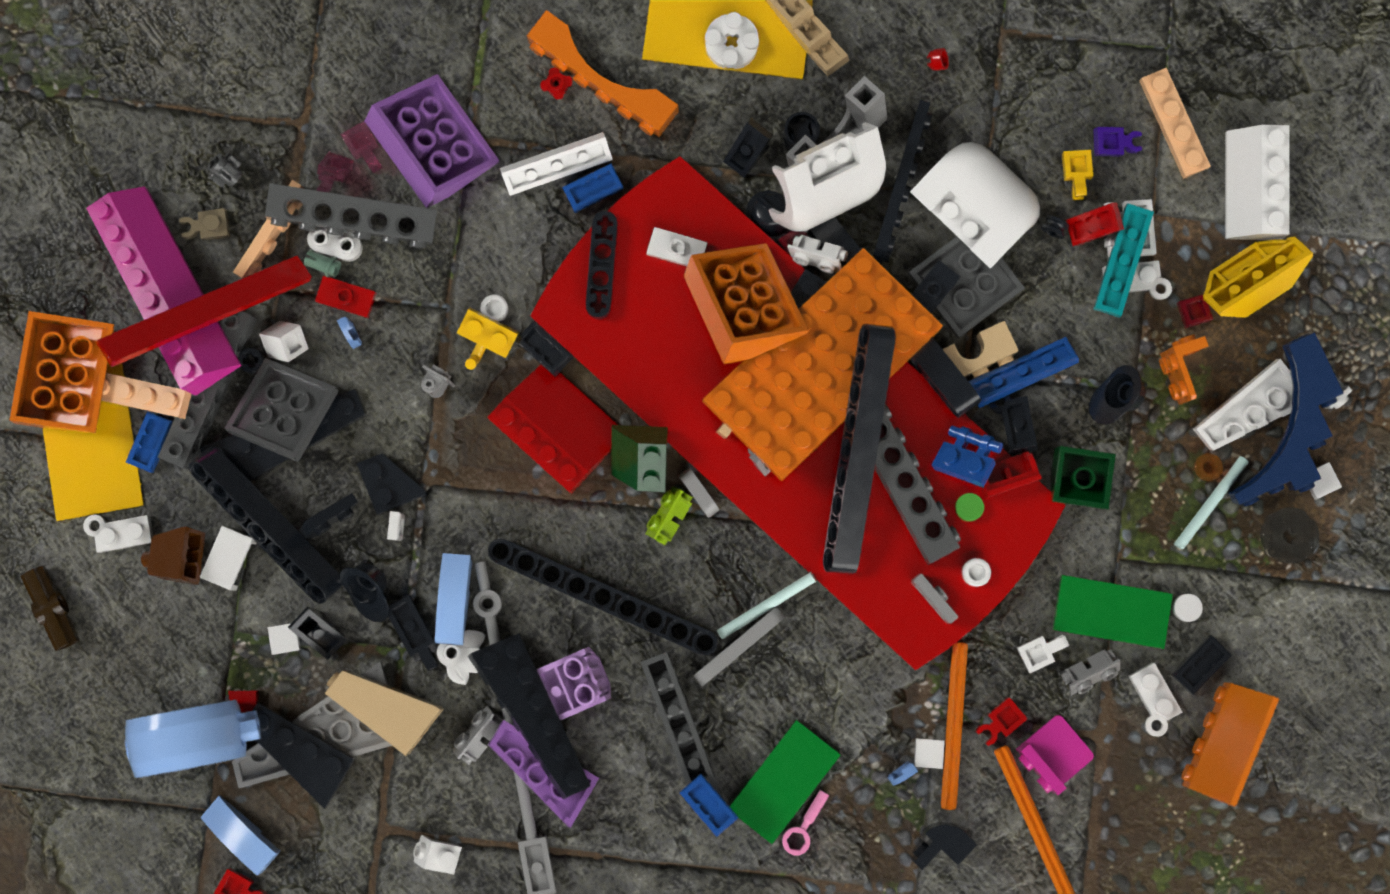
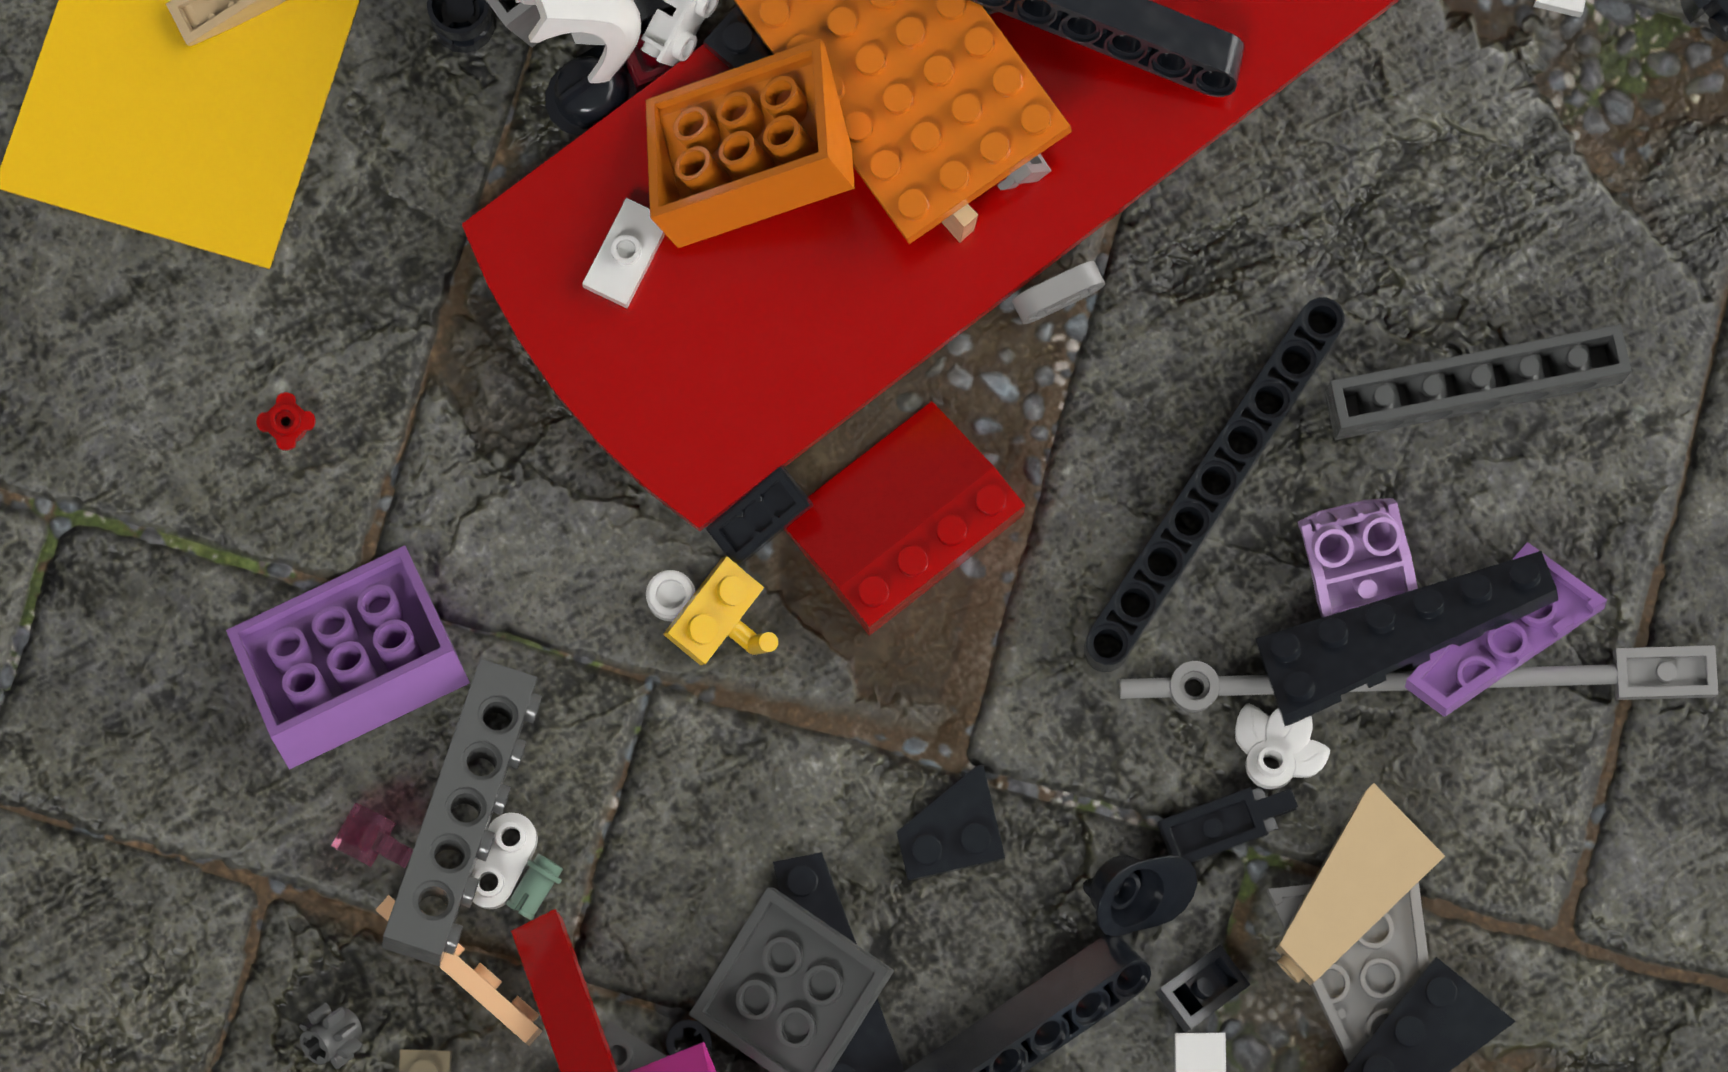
camera: 85 degrees left, 5 degrees down
(283, 341) = (664, 976): white panel -> none
(324, 519) = (1006, 951): black wing -> none
(345, 297) = (602, 856): red plate -> none
(349, 332) = (664, 857): medium blue tile -> none
(361, 143) = (328, 782): clear pink plate -> none
(396, 526) = (1032, 825): white tile -> none
(435, 381) = (787, 708): light grey hinge -> none
(436, 855) = (1620, 845): white bracket -> none
(453, 599) = (1178, 742): light blue slope -> none
(469, 744) = (1435, 759): light grey hinge -> none
(556, 163) = (432, 443): white plate -> none
(593, 188) = (487, 387): blue plate -> none
(605, 265) = (630, 393): black beam -> none
(640, 456) = (982, 375): dark green slope -> none
(646, 106) = (213, 406): orange arch -> none
(673, 504) = (1071, 338): lime hinge -> none
(708, 805) = (1604, 348): blue plate -> none
(731, 25) = (244, 96): white plate -> none
(739, 646) = (1335, 267): light grey beam -> none
(748, 148) = (468, 107): black slope -> none
(766, 605) = (1273, 209): light aqua bar -> none
(784, 781) = (1576, 233): green tile -> none
(809, 818) = (1645, 203): bright pink piece -> none
(902, 773) = (1591, 33): medium blue tile -> none

